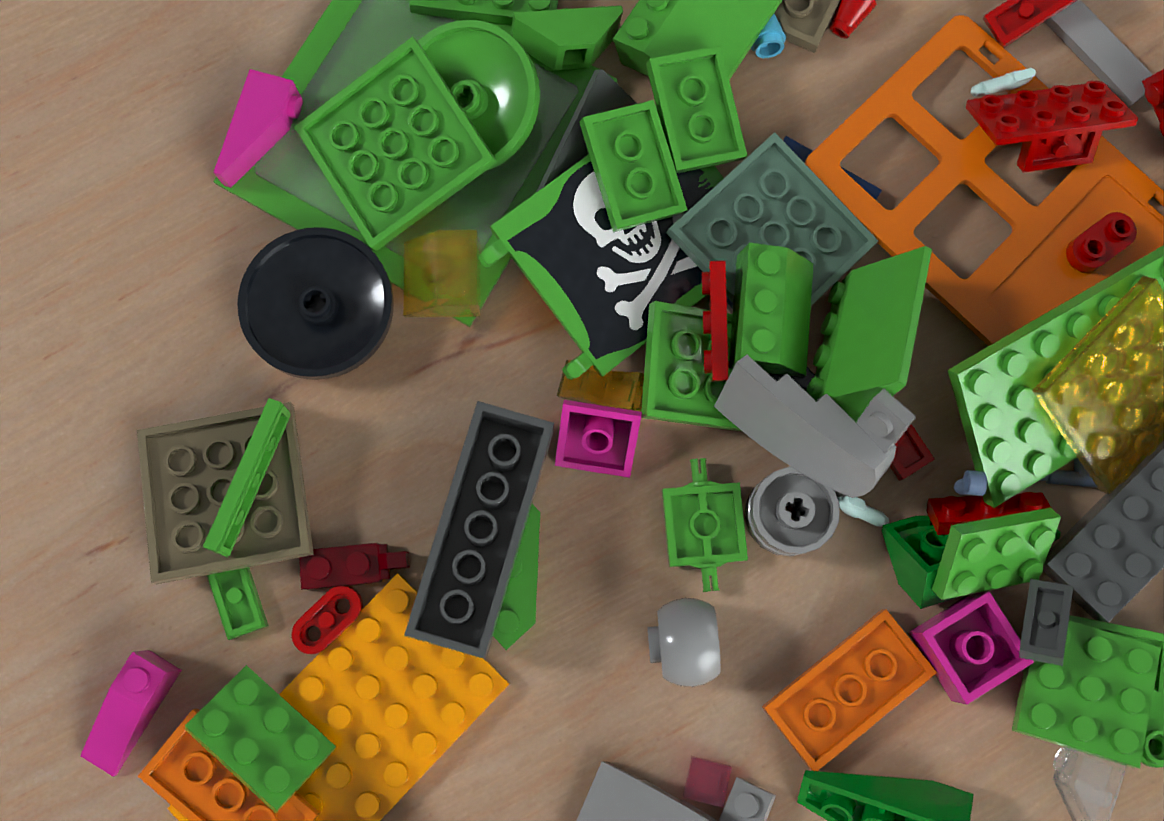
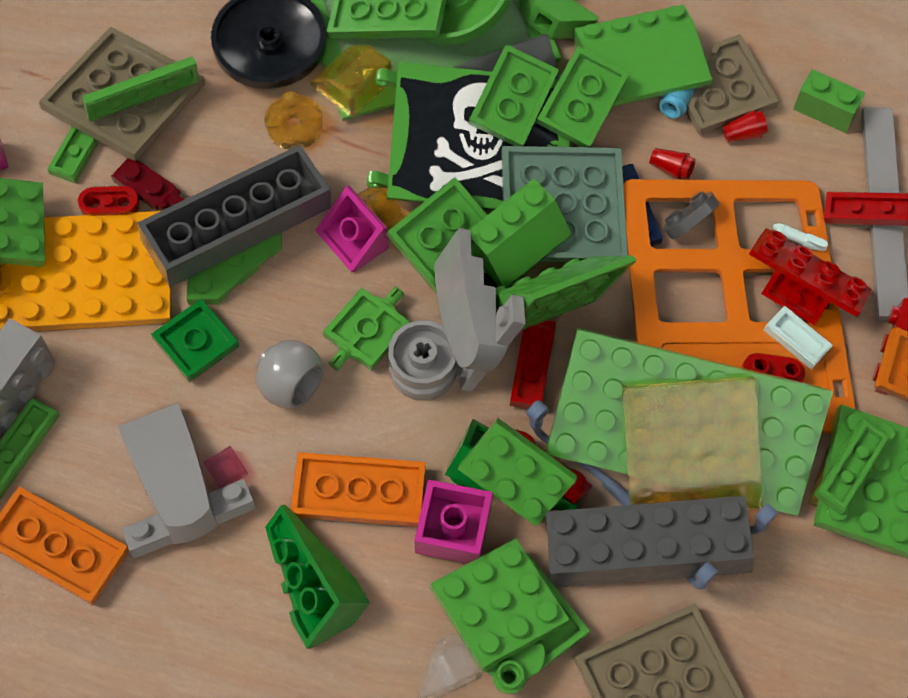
camera: 45 degrees right, 15 degrees down
(407, 354) = (290, 107): none -> clear yellow plate
(556, 684) = (195, 340): none -> green plate
(716, 321) = (494, 194): red plate -> none
(822, 103) = (674, 163): none -> red cone
(857, 508) = (463, 390): light aqua piece -> none
(893, 145) = (681, 221): none -> dark grey plate
(1046, 622) = (509, 535): dark grey plate -> none
(1089, 187) = (797, 337): none -> light aqua tile

